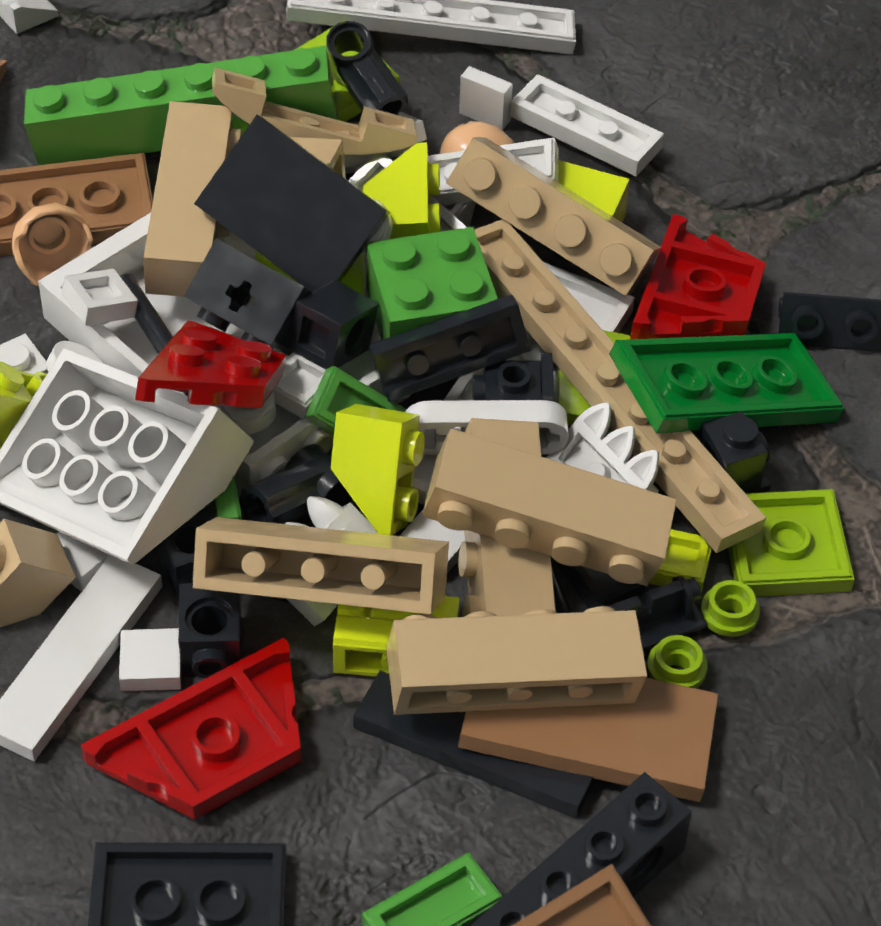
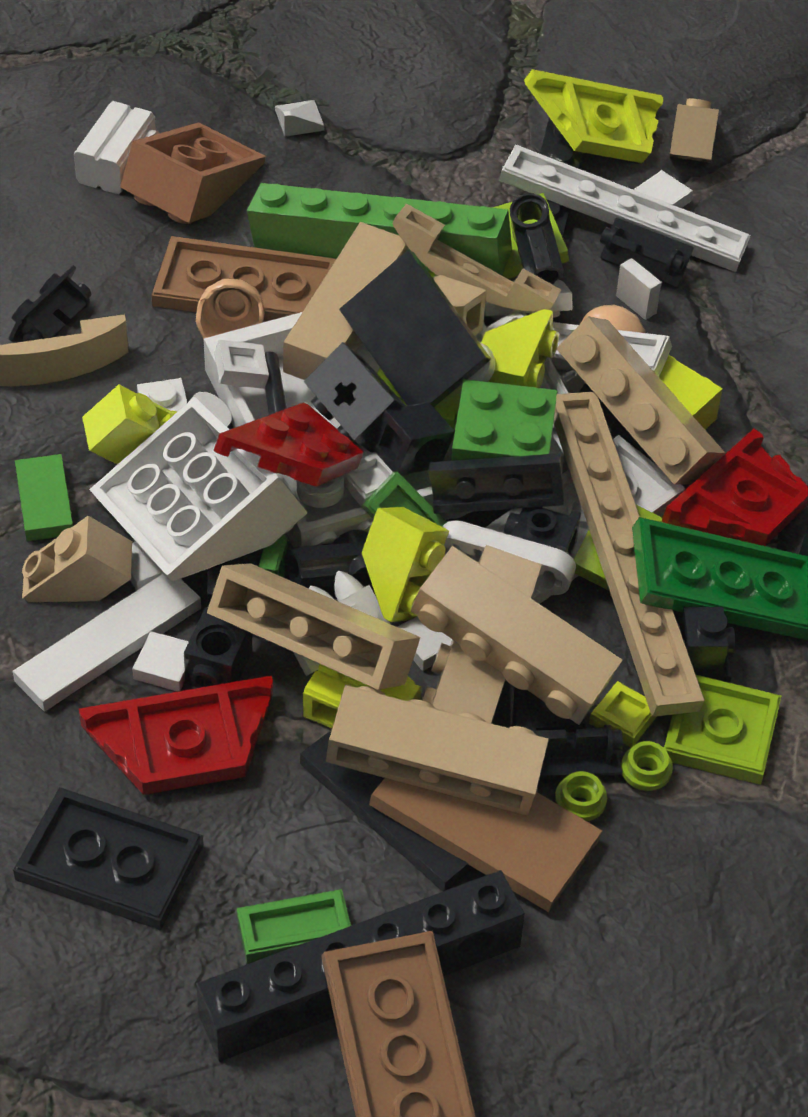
camera: 20 degrees right, 0 degrees up
(453, 51) = (656, 253): none -> black hinge
(586, 125) = (715, 334): white plate -> none
(607, 455) = (592, 609): white plate -> none

